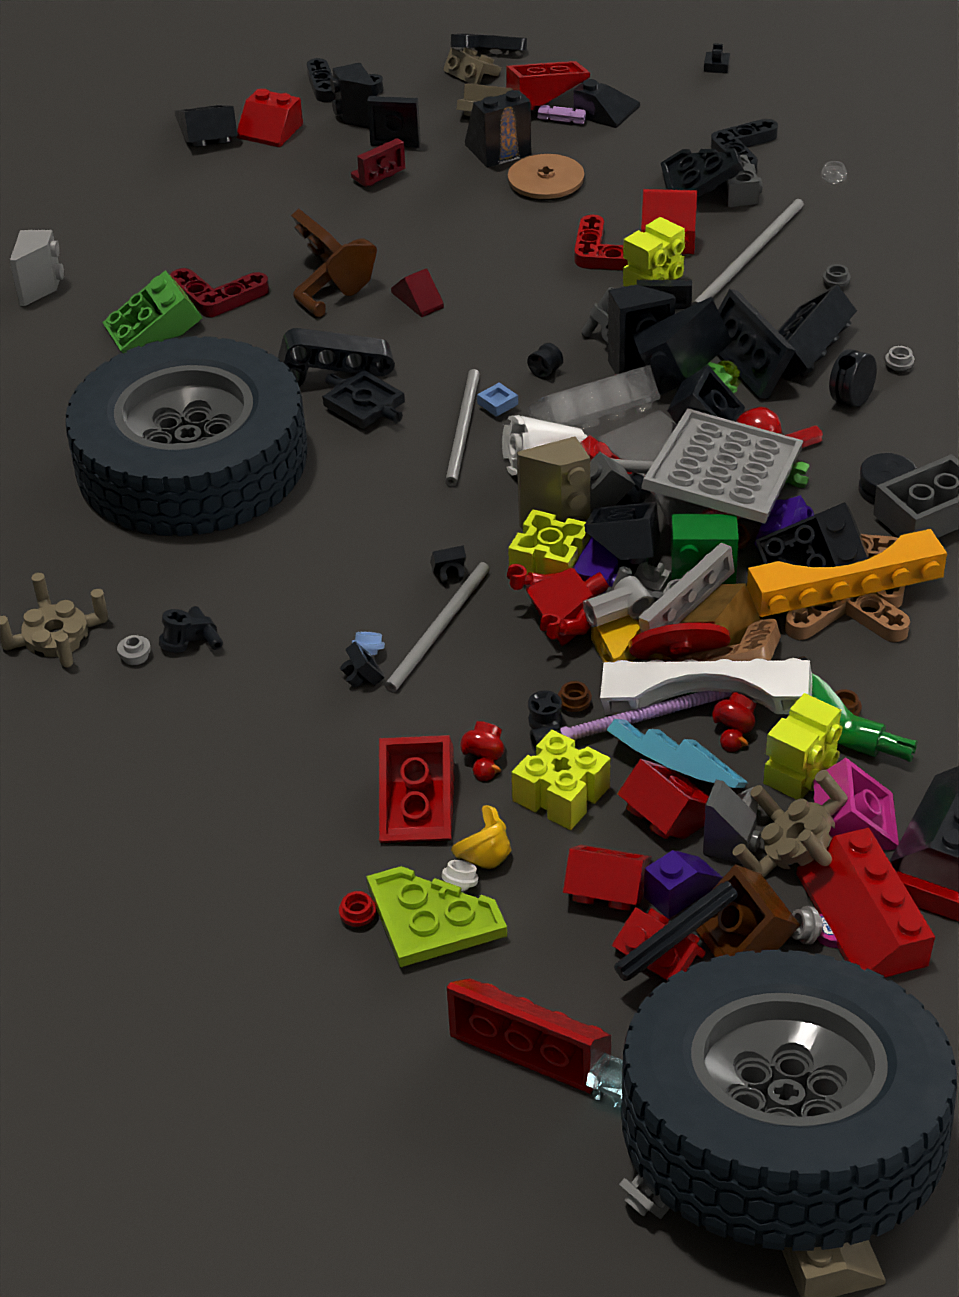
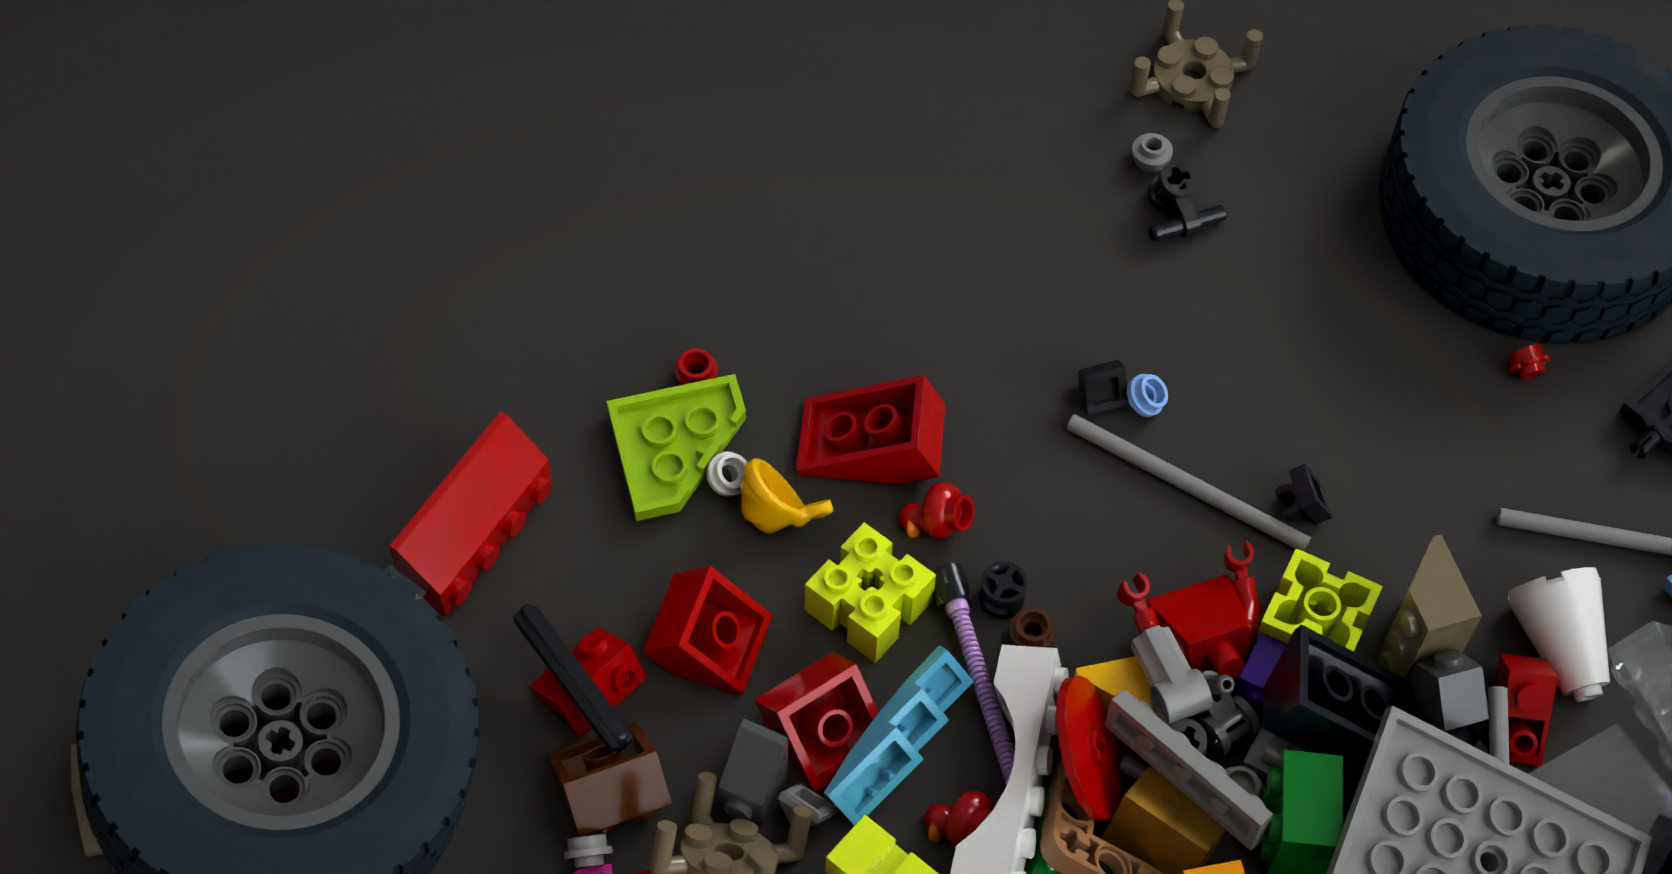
camera: 90 degrees right, 15 degrees up
(327, 463) = (1528, 362): none -> red plate
(678, 882) = (685, 715): dark purple slope -> none

